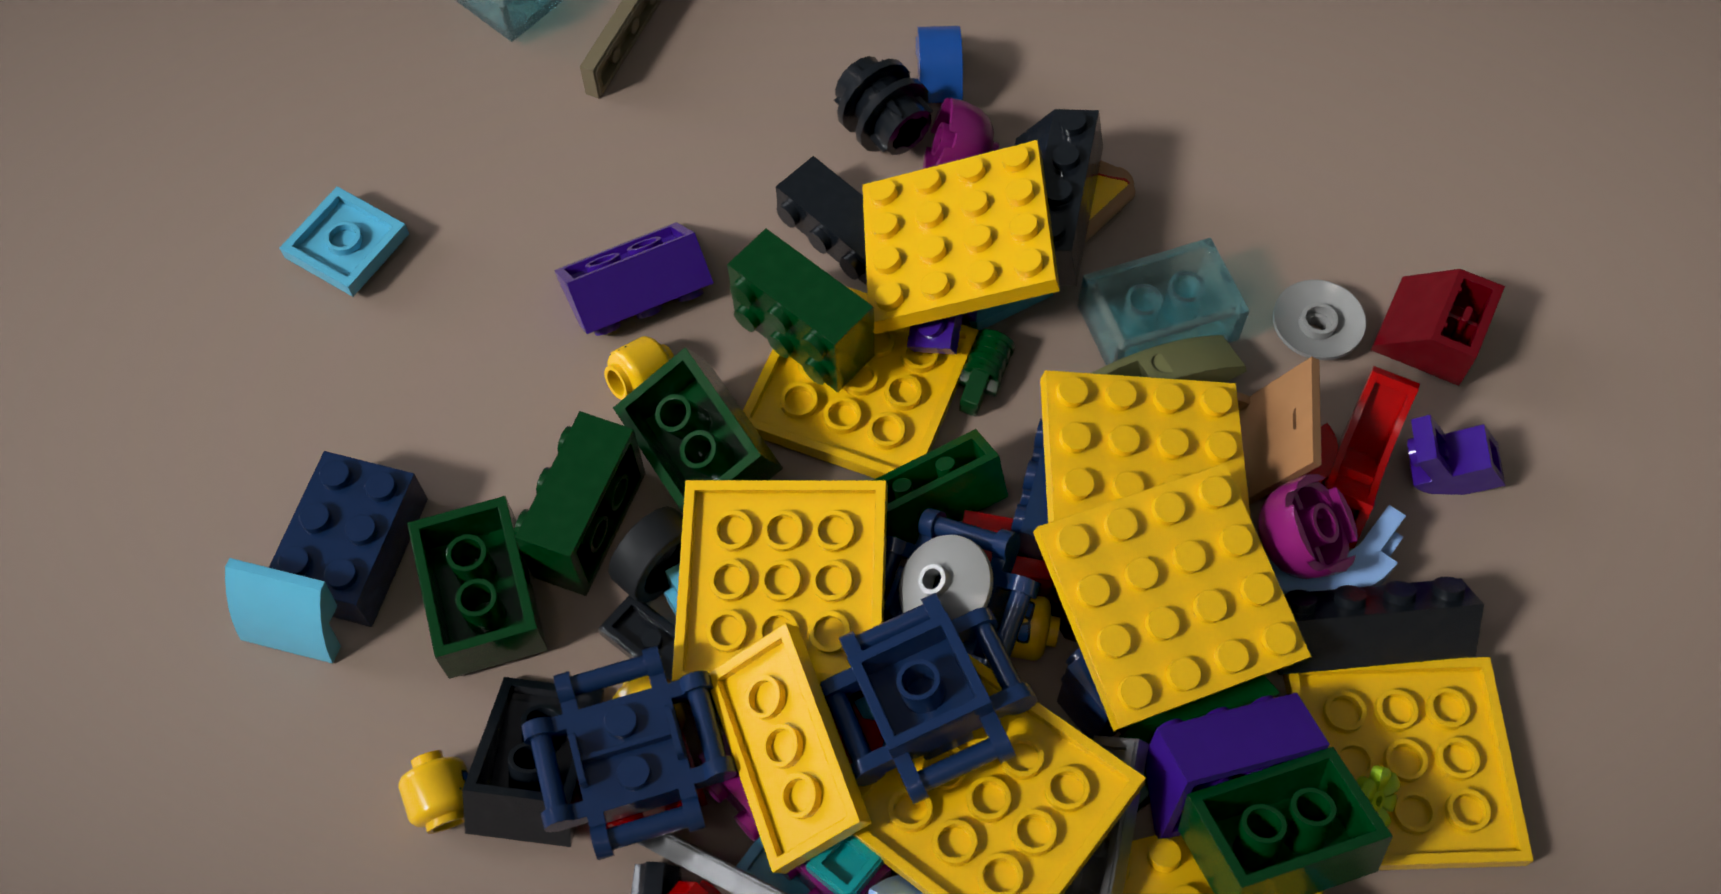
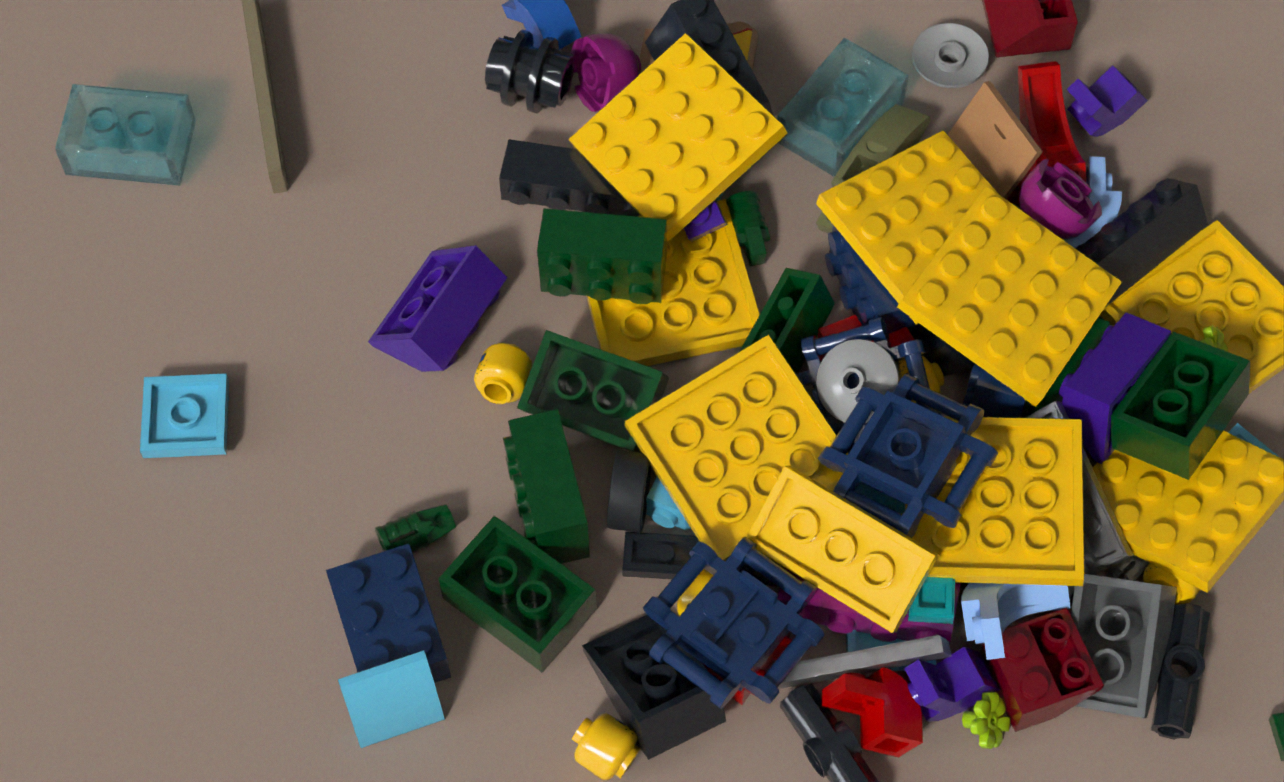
camera: 35 degrees left, 0 degrees up
(456, 468) = (427, 527): none -> dark green hinge

